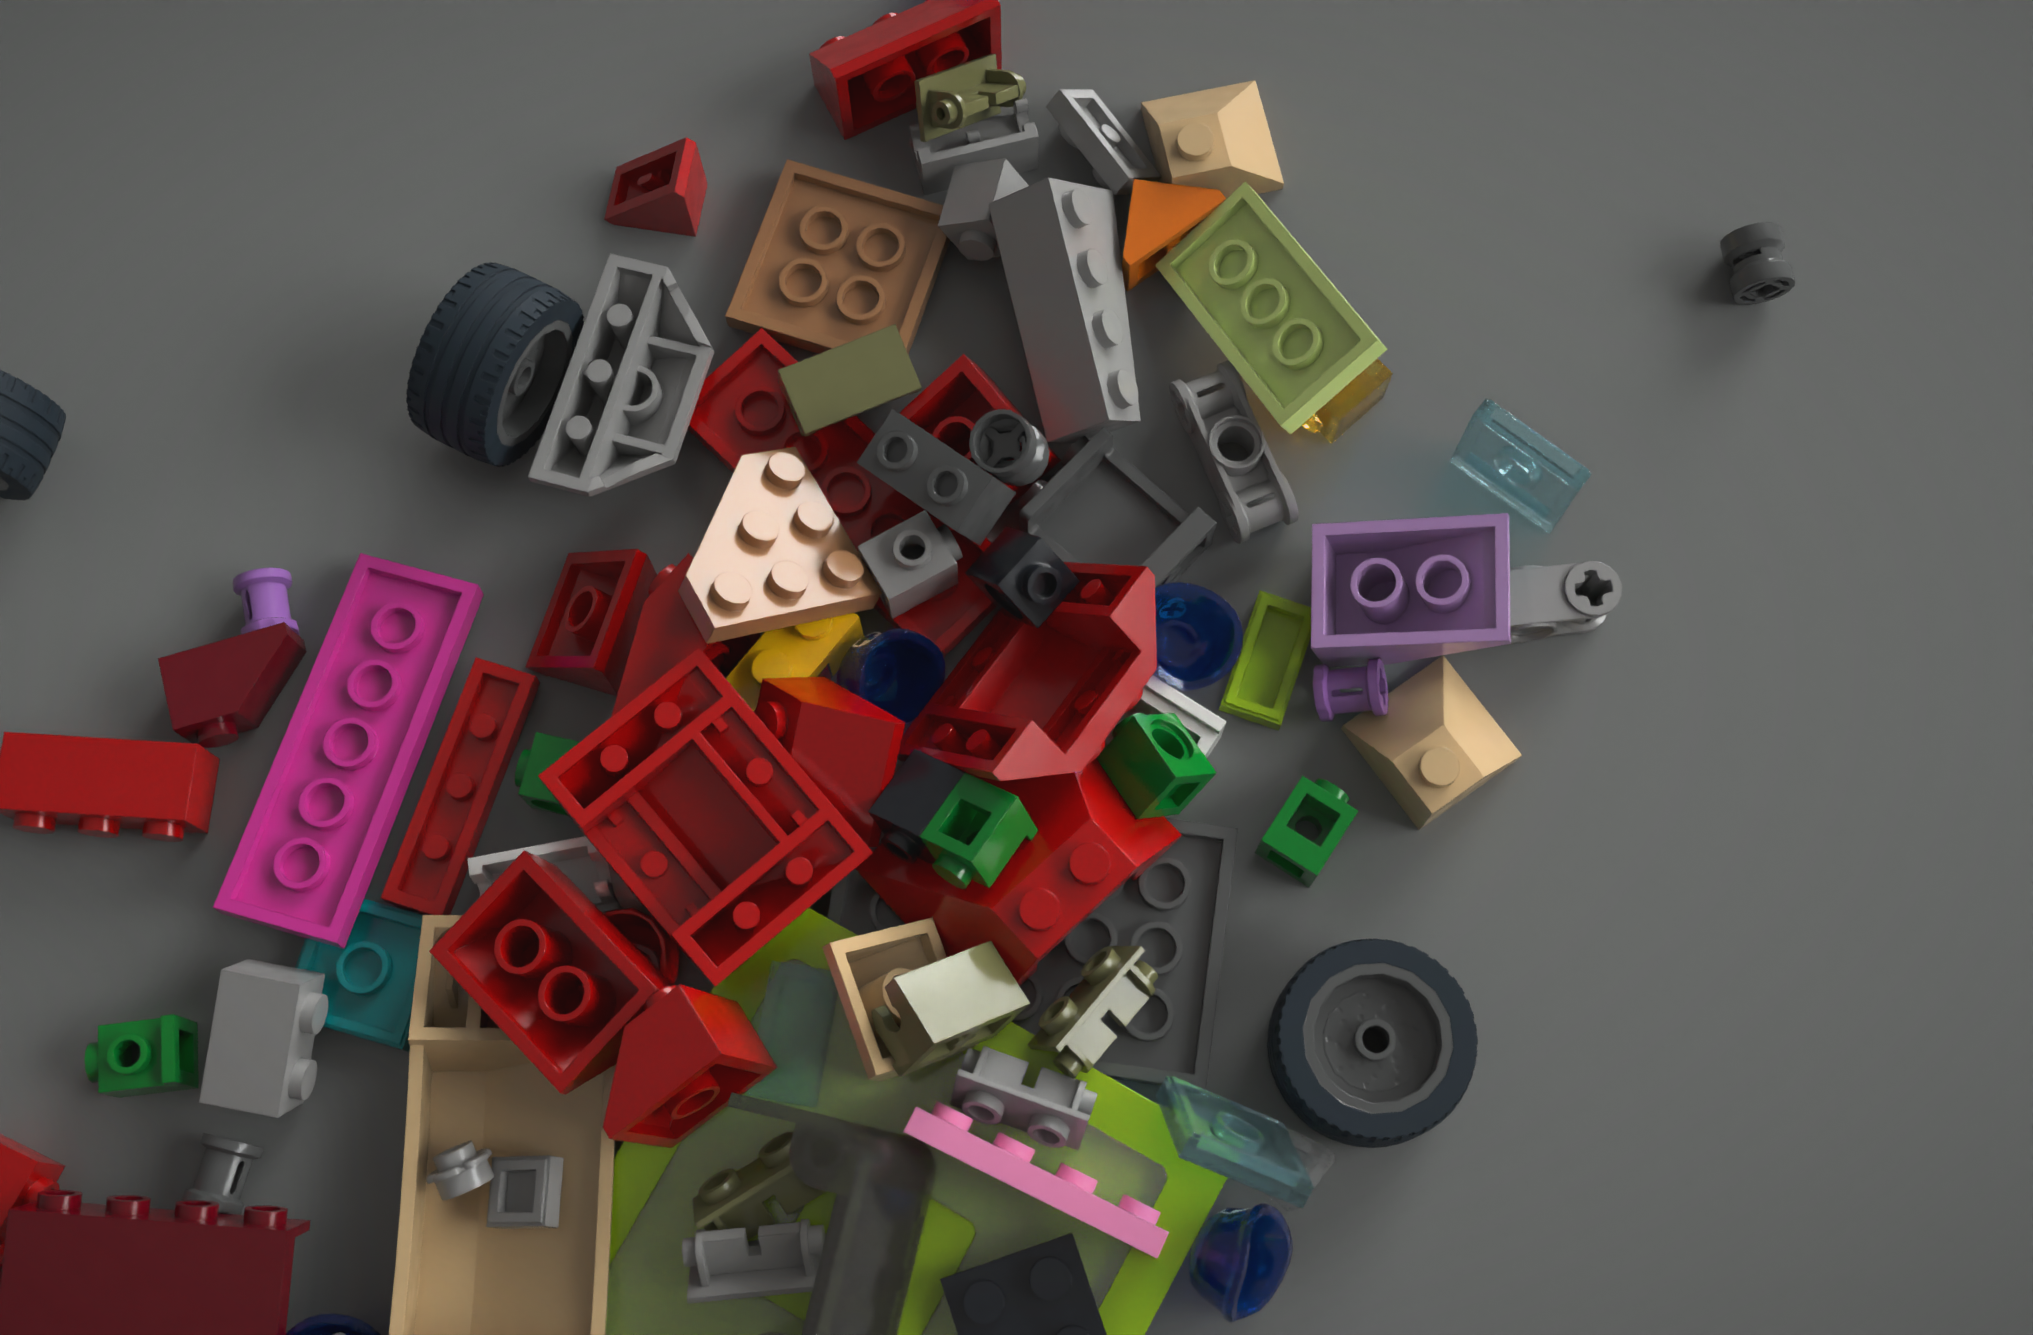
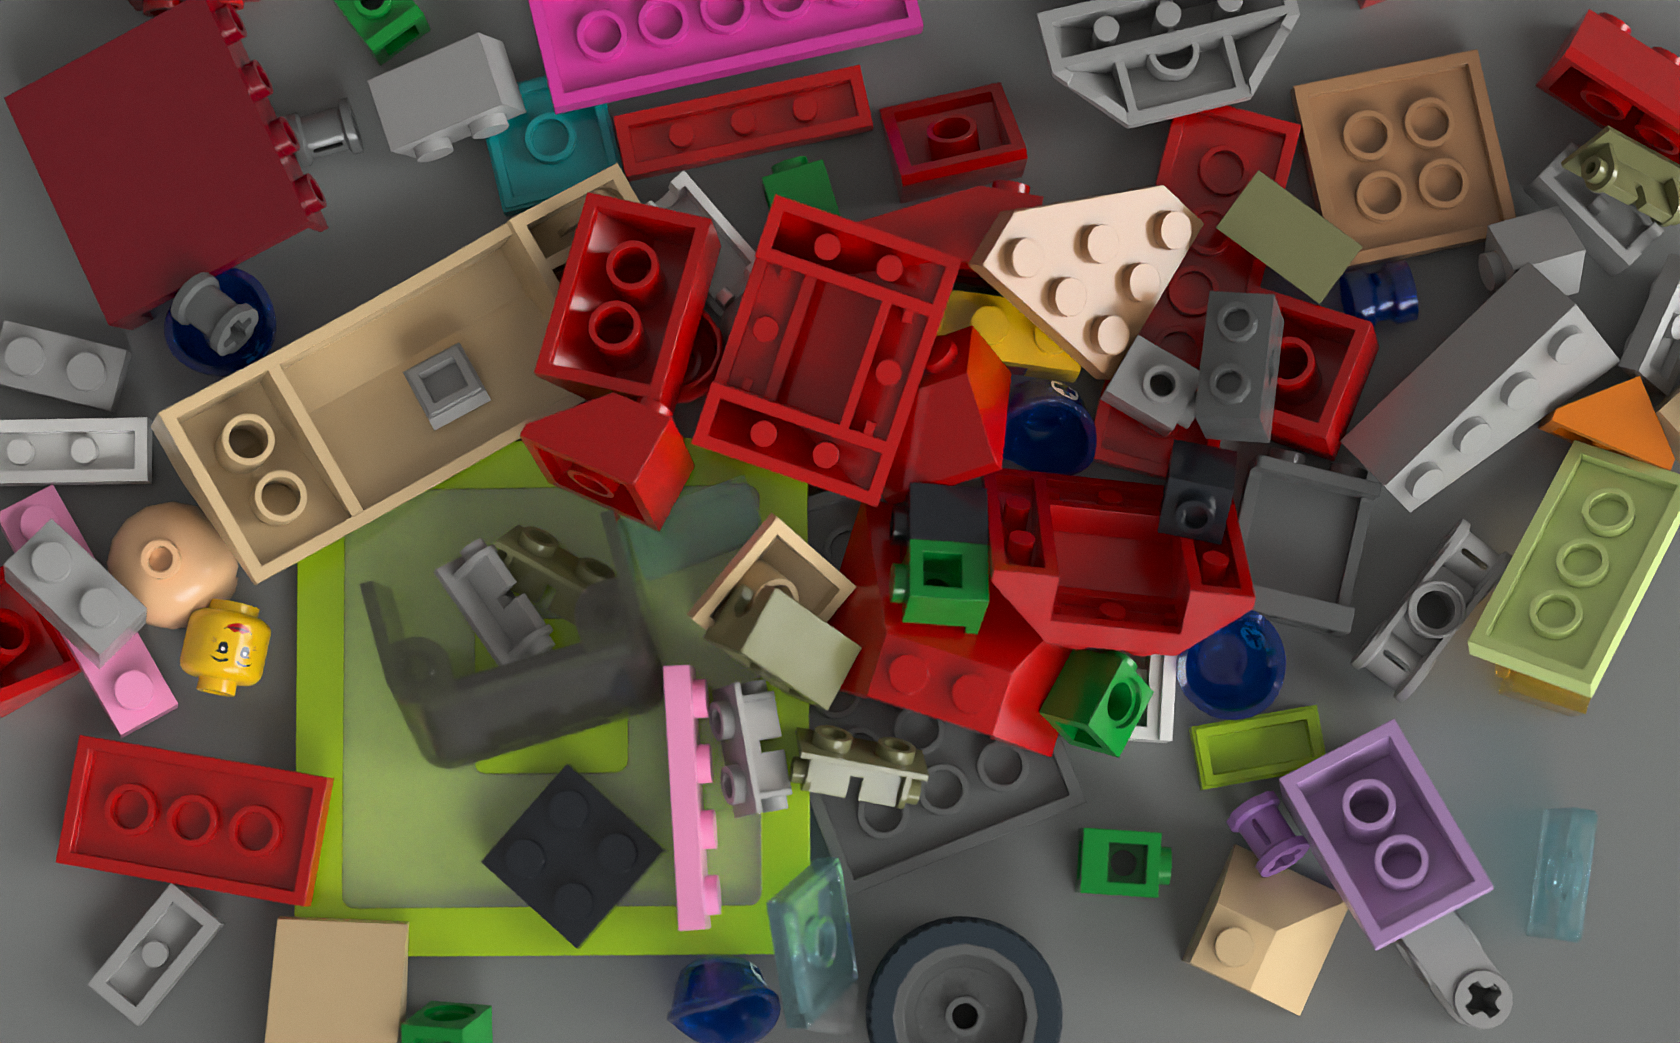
camera: 55 degrees right, 10 degrees up
(460, 1170) = (433, 325): light grey plate -> none
(943, 340) = (1380, 295): none -> clear blue wheel
(999, 437) = (1298, 402): dark grey wheel -> none

